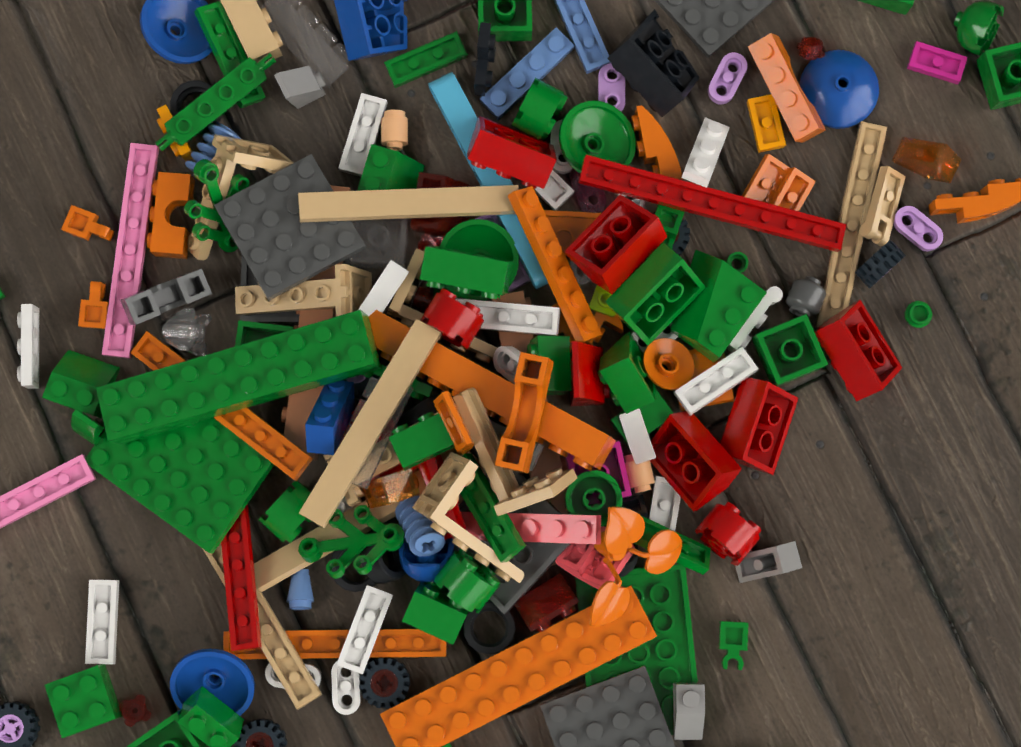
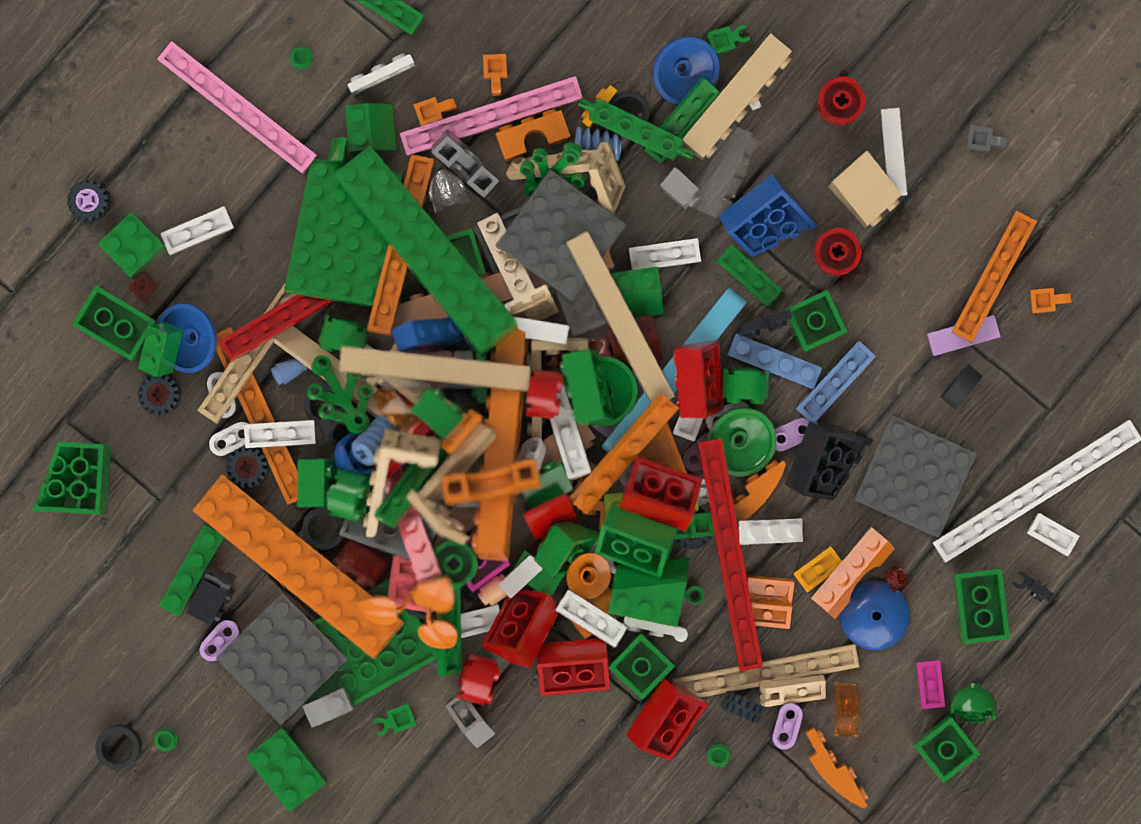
camera: 65 degrees right, 5 degrees up
(394, 129) = (679, 278): light nougat brick -> none
(726, 79) = (841, 522): lavender plate -> none
(806, 297) = (691, 660): dark grey head -> none

